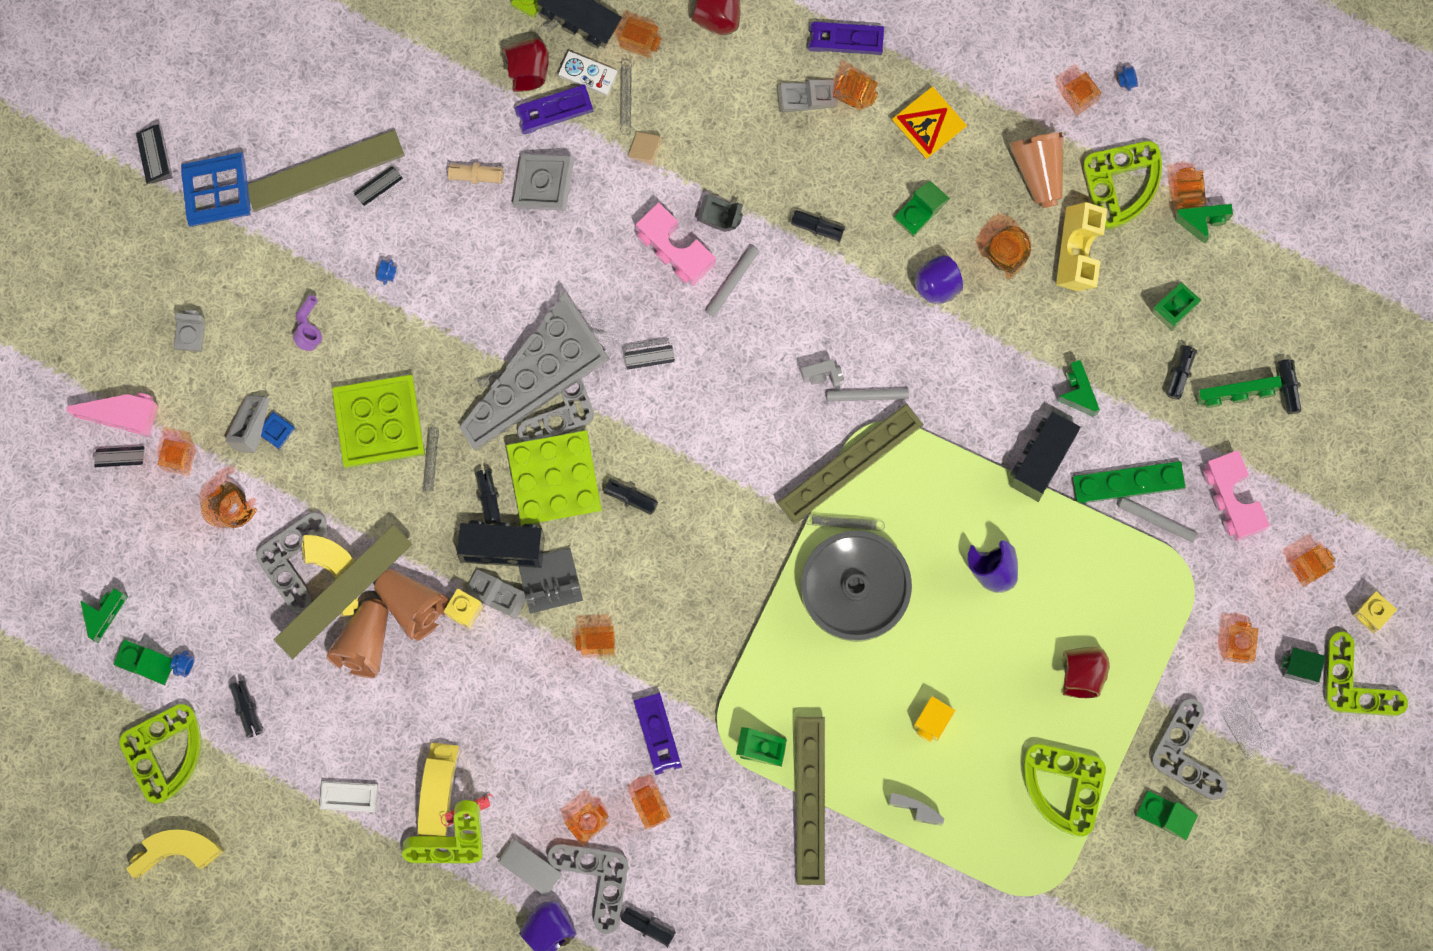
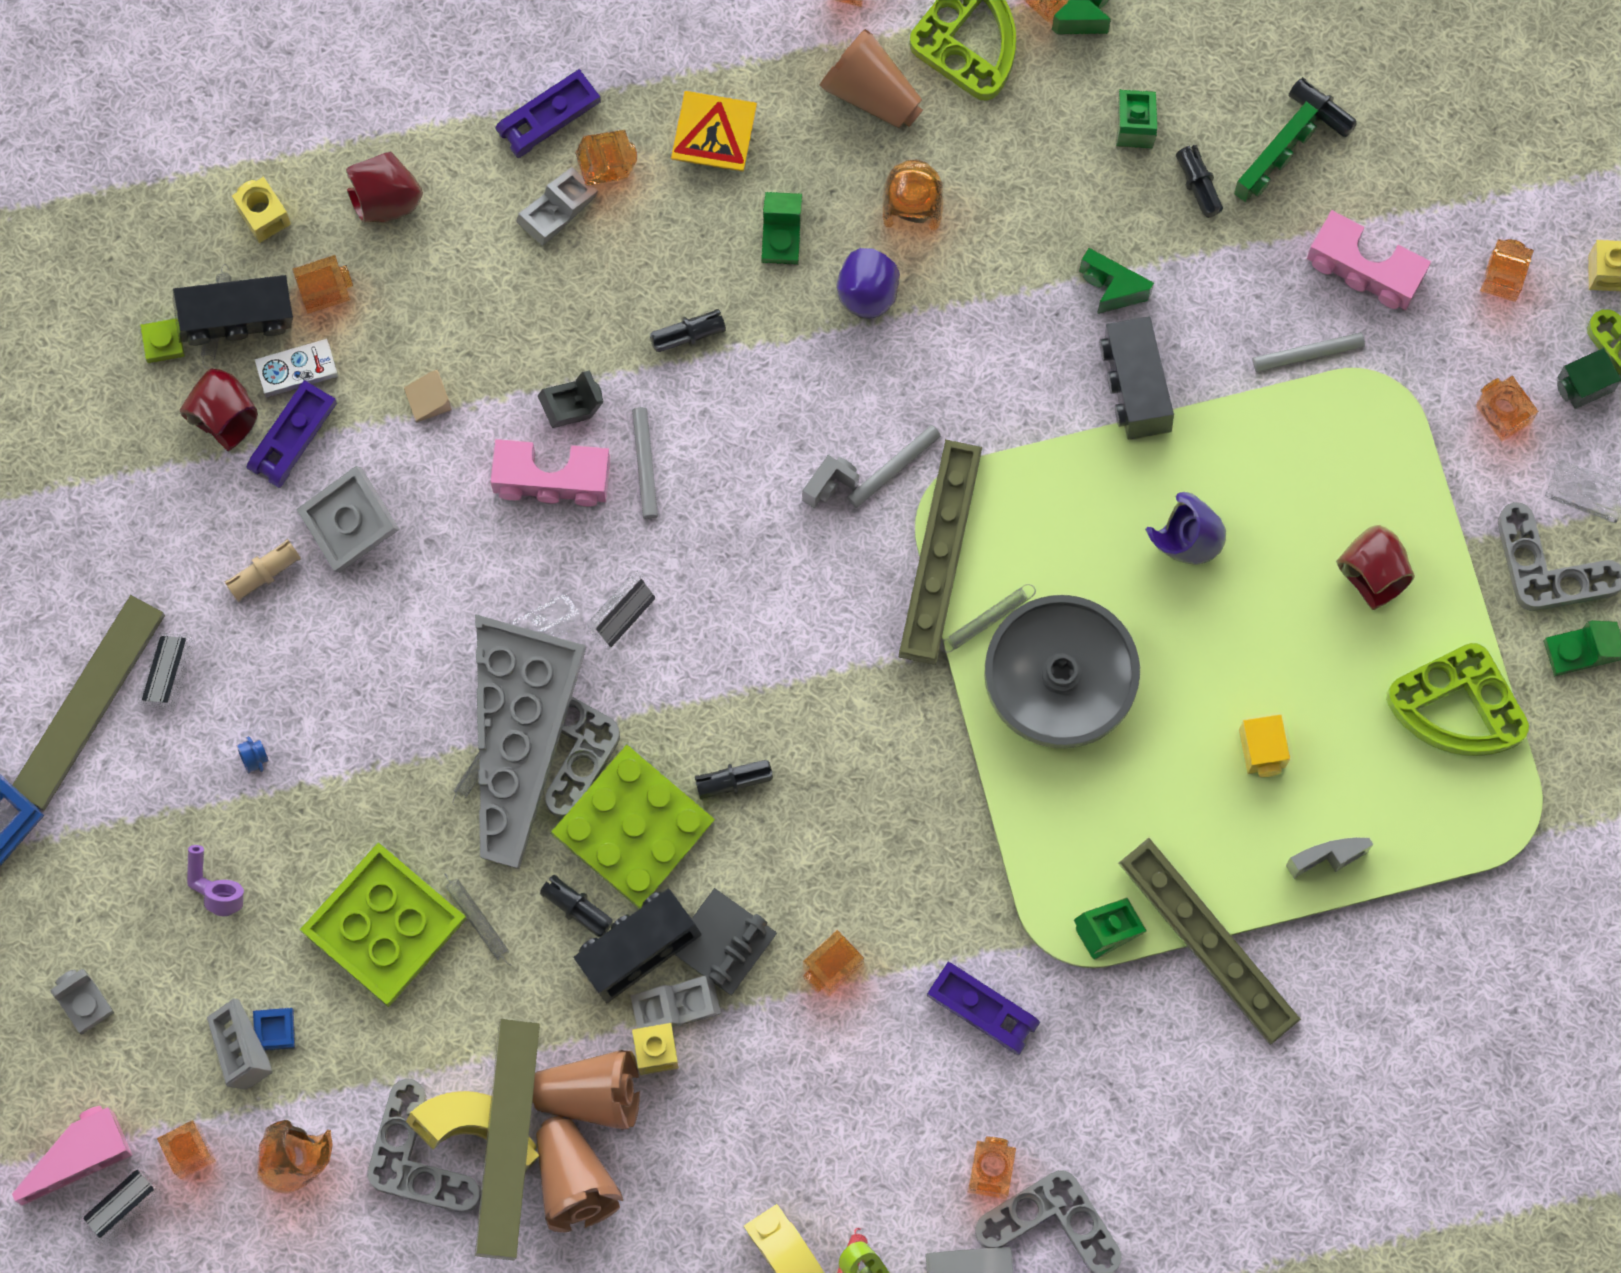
camera: 45 degrees left, 5 degrees down
(622, 95) = (361, 352): light grey piece -> none
(648, 926) = (1153, 1224): black axle -> none
(650, 807) = (1044, 1092): clear orange brick -> none
(1081, 226) = (968, 112): light yellow arch -> none
(1129, 482) = (1245, 337): green plate -> none

